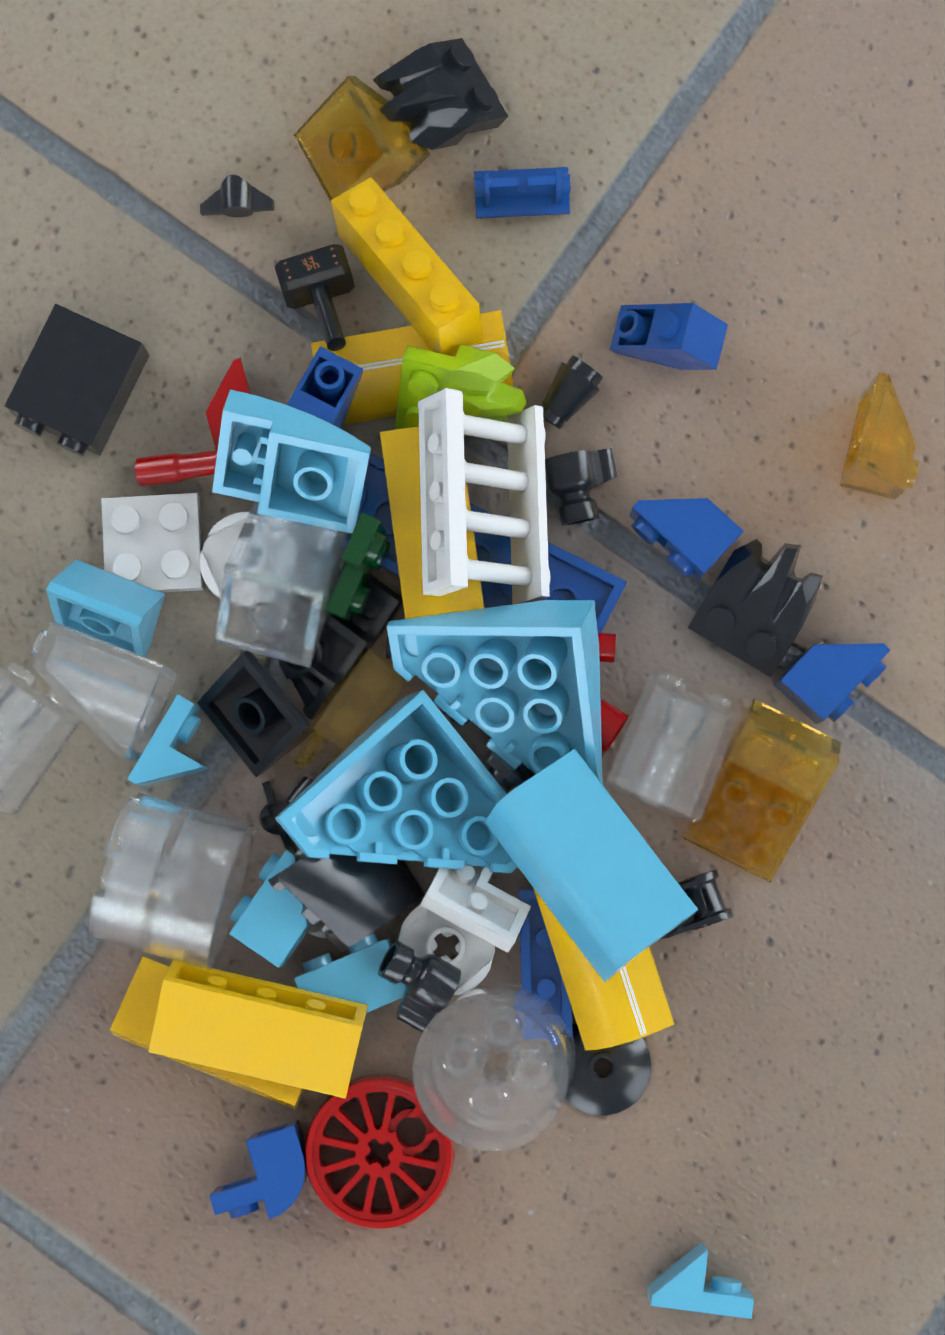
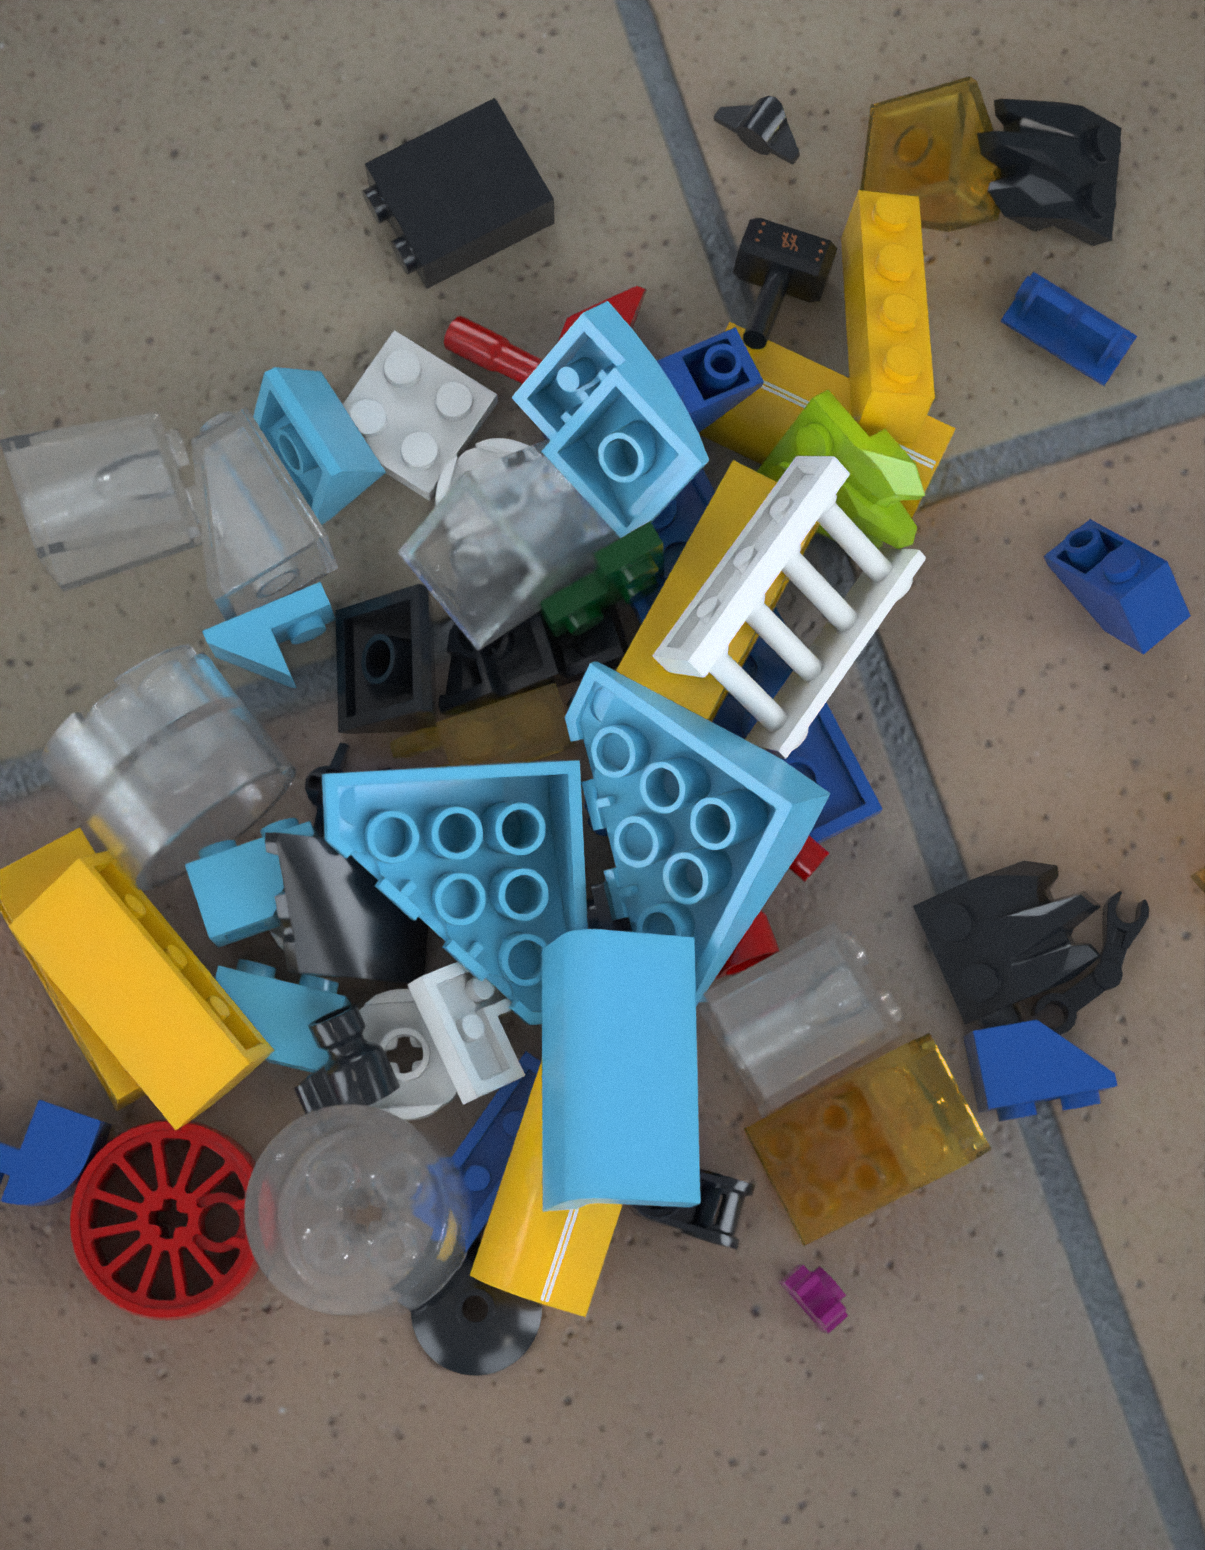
camera: 30 degrees right, 5 degrees down
(570, 391) = (968, 567): black cone -> none
(573, 477) = (906, 659): black piece -> none
(689, 529) = (990, 803): blue slope -> none
(801, 907) = (817, 1296): none -> magenta plate
(832, 581) = (1107, 972): none -> black piece

